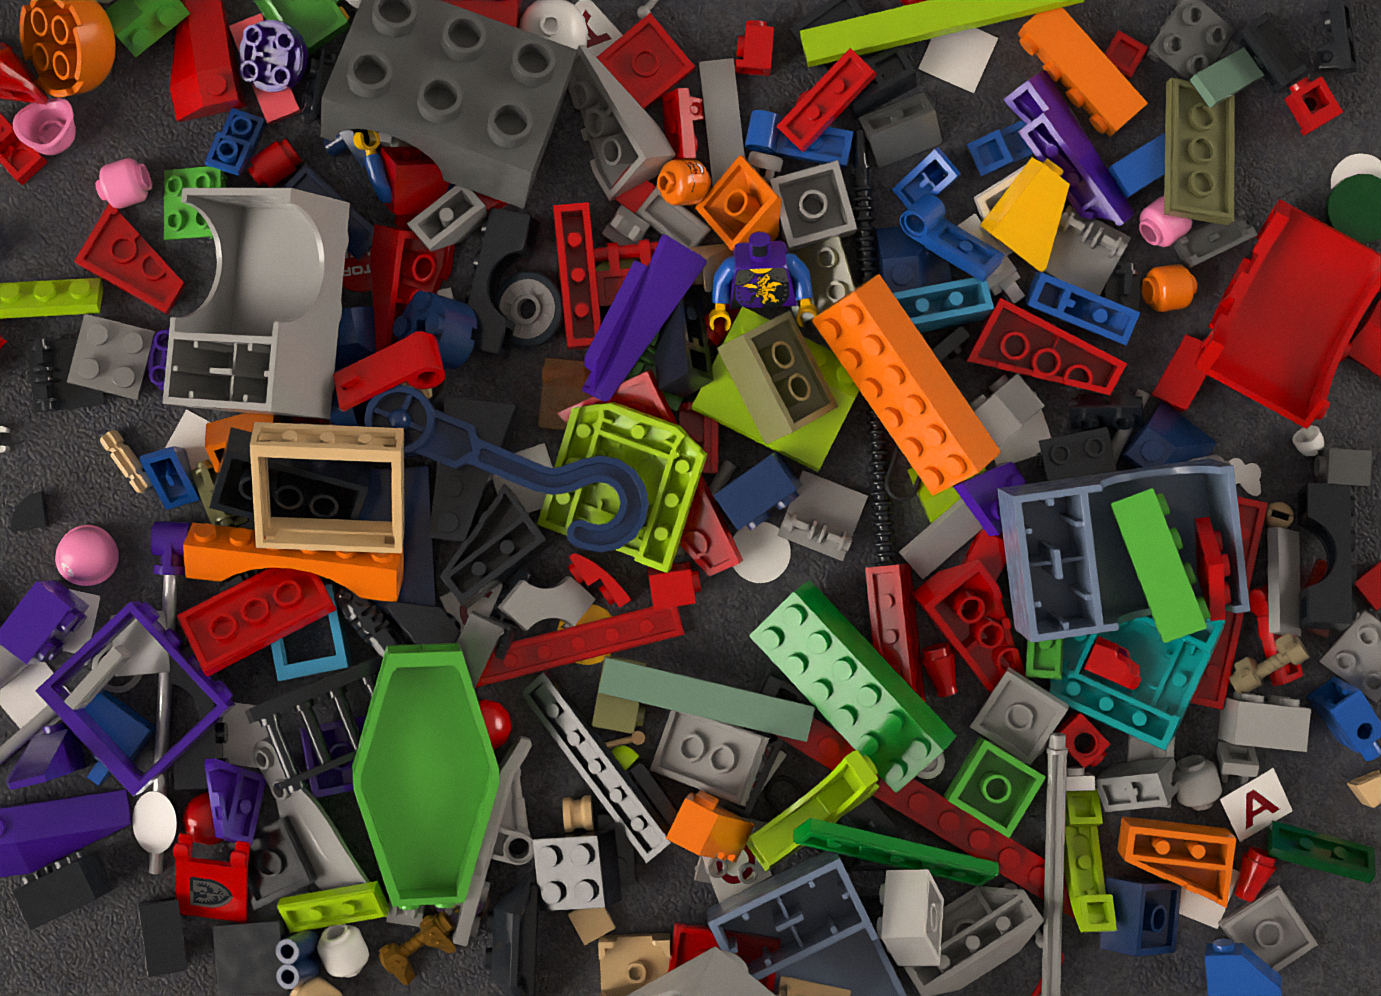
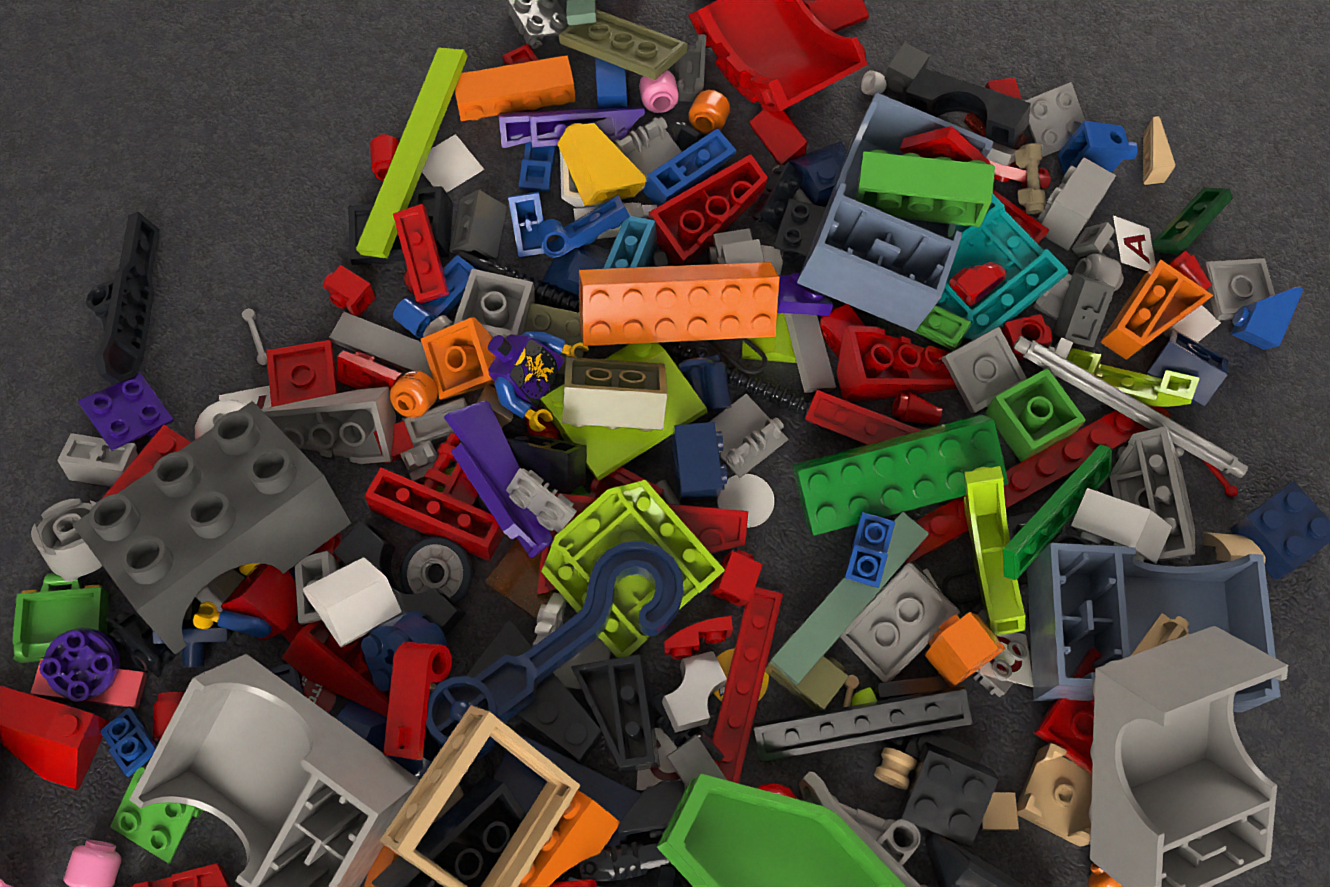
camera: 65 degrees left, 20 degrees down
(452, 258) = (353, 601): none -> white slope
(541, 438) = (550, 617): none -> white plate
(623, 389) = (528, 493): none -> light grey hinge
(756, 695) = (869, 550): none -> blue slope
(853, 453) = (709, 380): none -> dark blue piece

